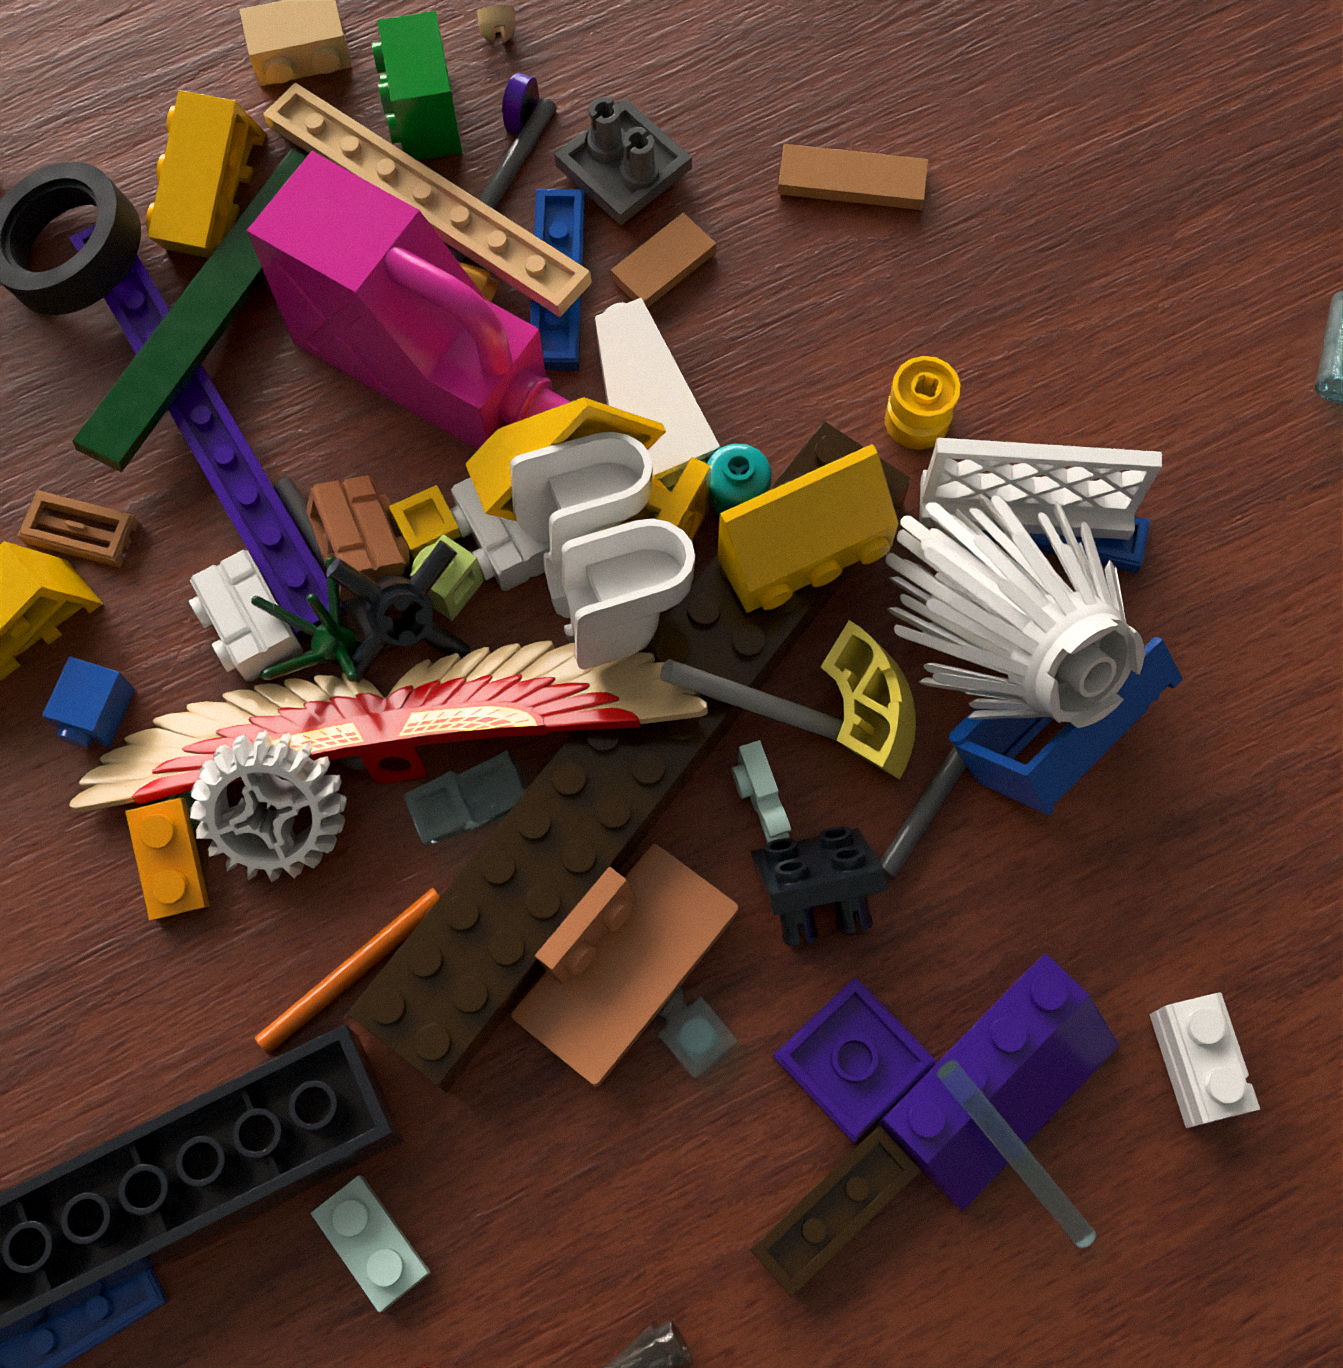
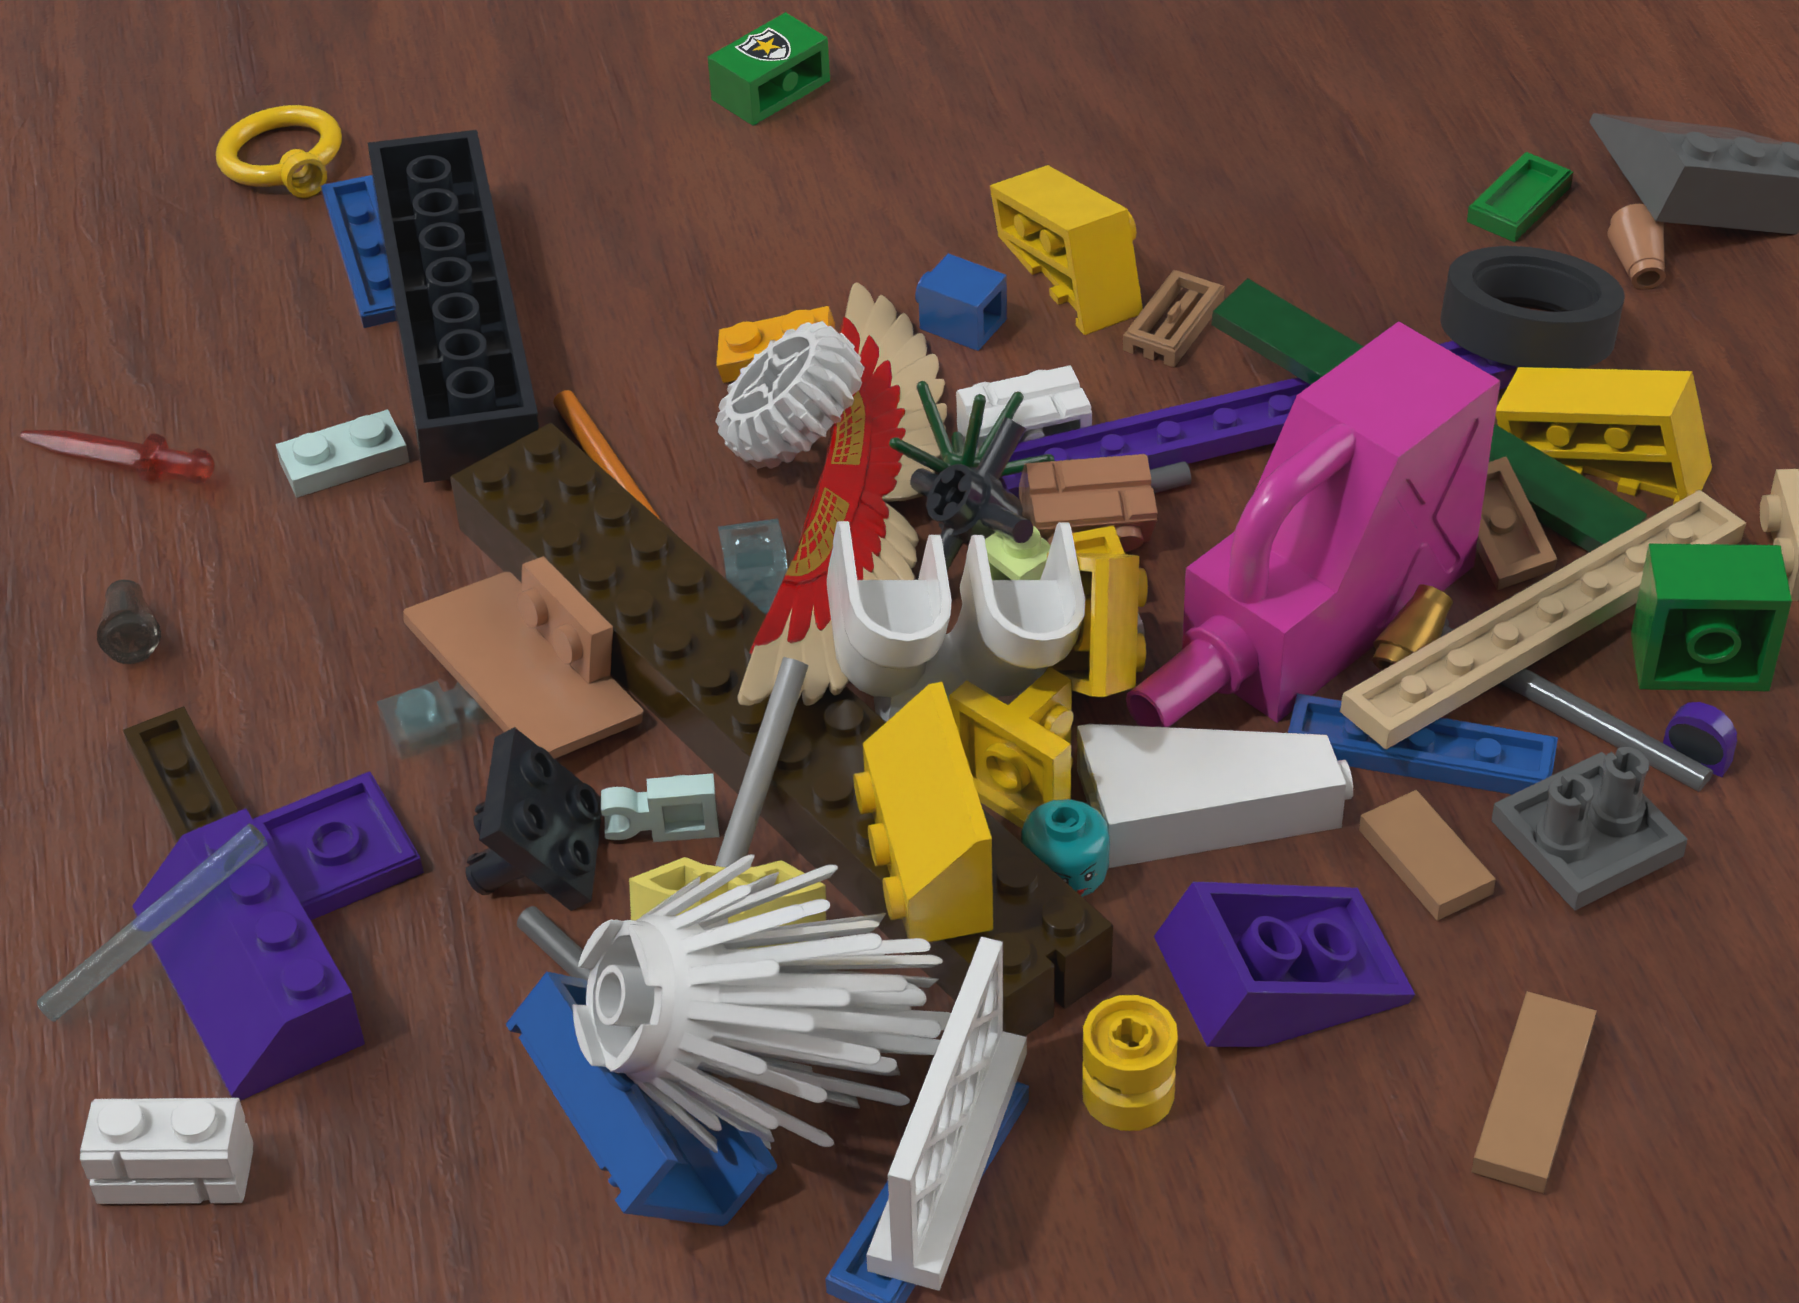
camera: 105 degrees right, 25 degrees down
(800, 331) = (1278, 960): none -> dark purple slope

